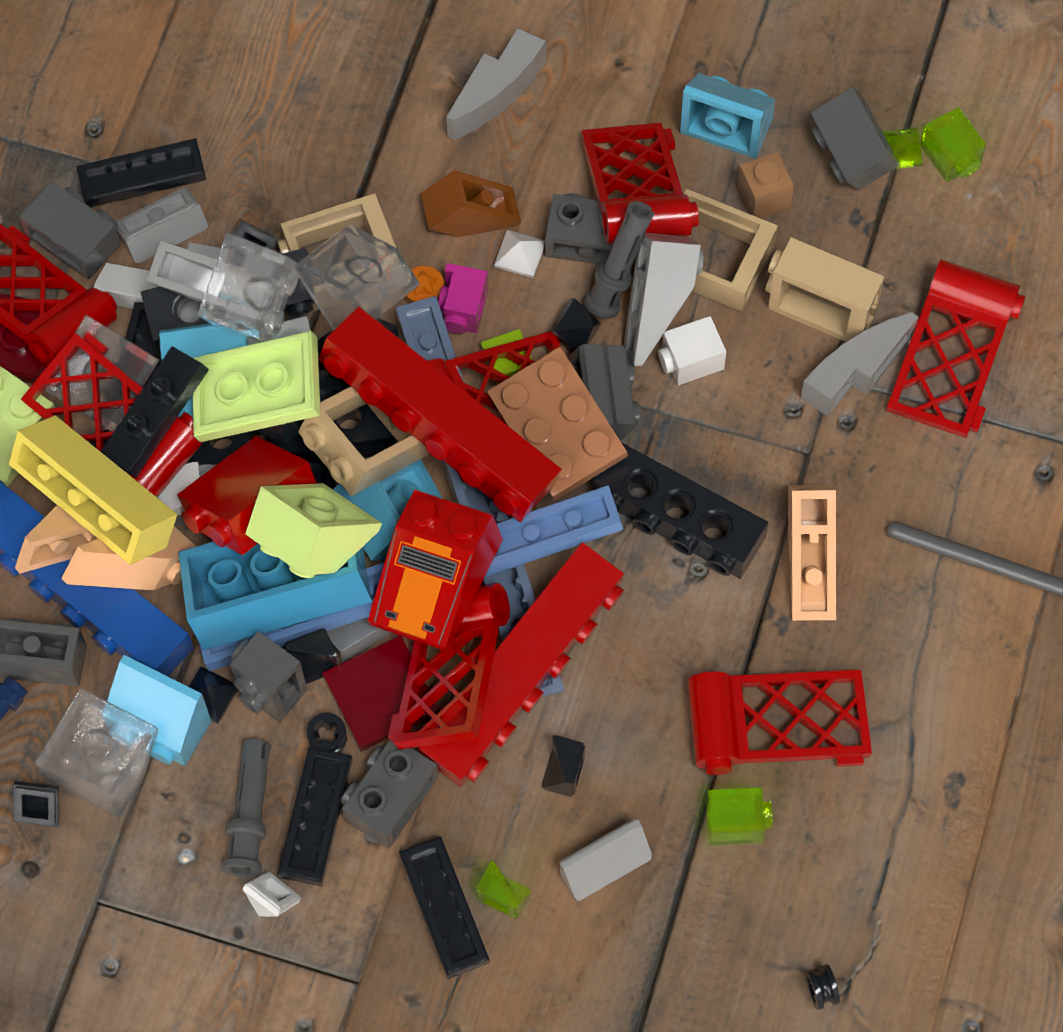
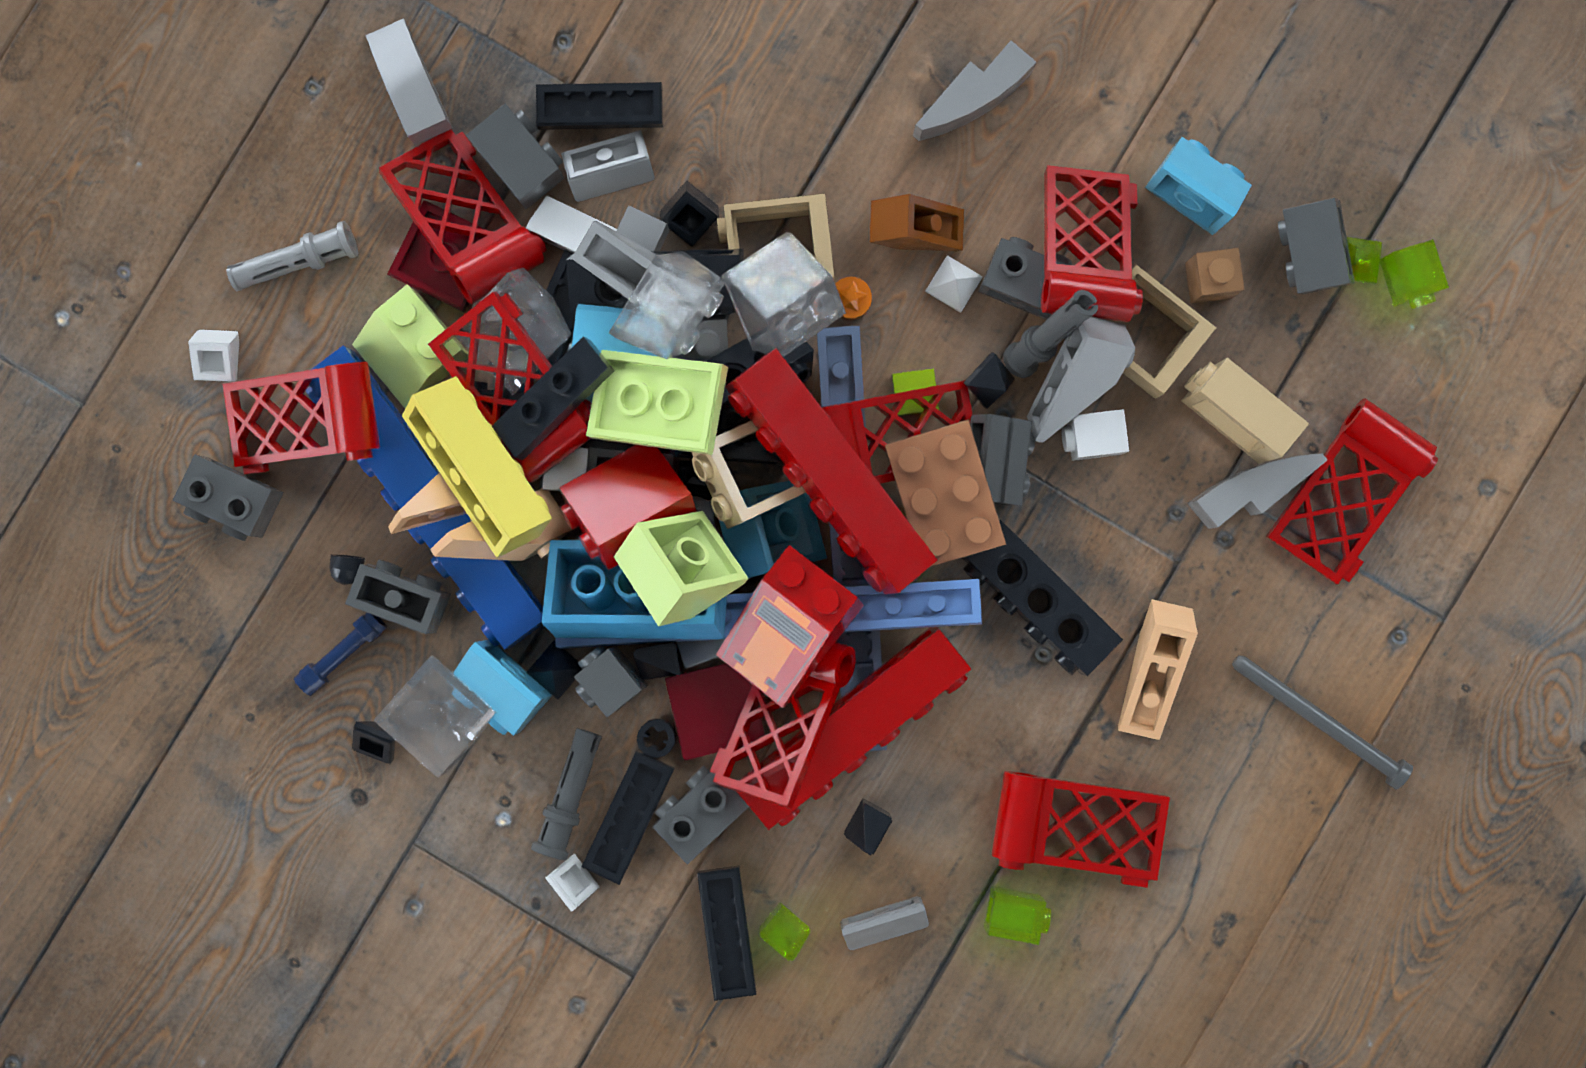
camera: 15 degrees right, 20 degrees up
(463, 298) = (885, 325): dark pink brick -> none

